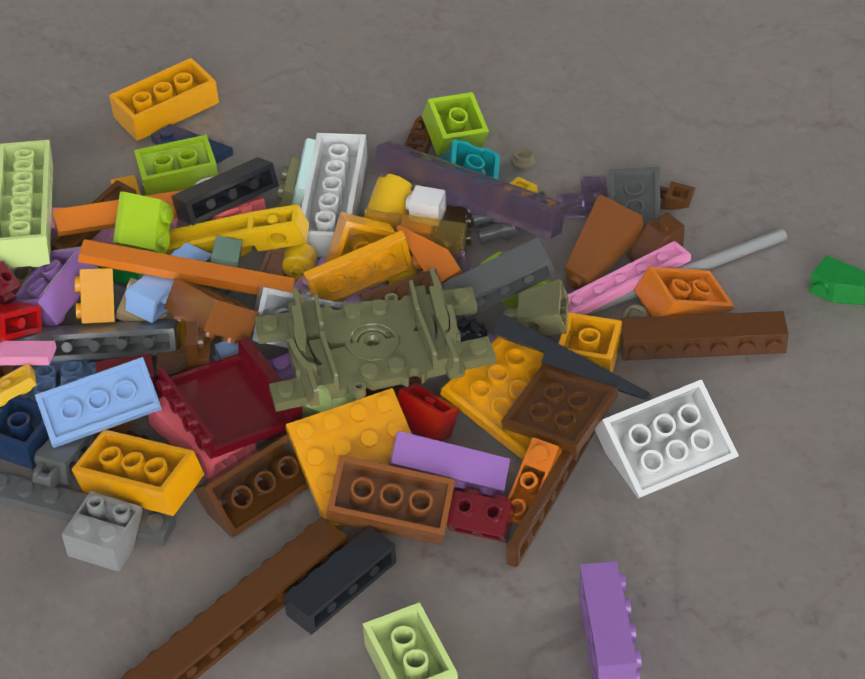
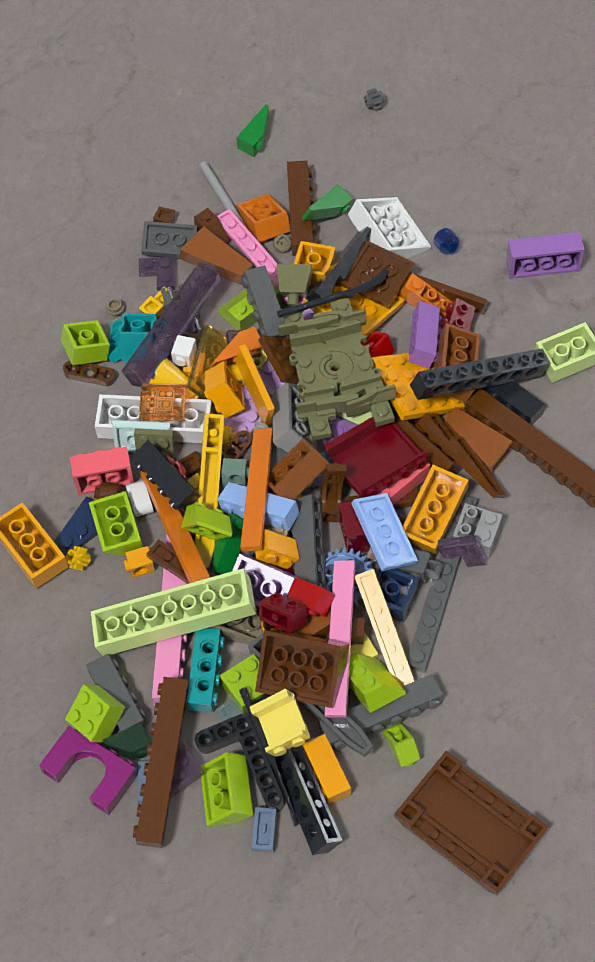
camera: 90 degrees left, 15 degrees up
(65, 503) = (466, 546): none -> clear purple plate
(140, 139) = (78, 558): none -> yellow gear
(224, 509) = (461, 452): none -> reddish brown slope
(228, 158) = (106, 489): none -> reddish brown head
(255, 136) = (100, 466): none -> coral brick
(259, 536) = (486, 442): none -> dark orange slope
(265, 260) = (236, 439): none -> reddish brown beam
(343, 188) = (158, 402): none -> clear orange container
(343, 506) = (479, 374): none -> black brick
(504, 355) = (379, 278): none -> black piece
(644, 510) = (446, 241): none -> clear blue head
(700, 357) = (329, 205): none -> green slope

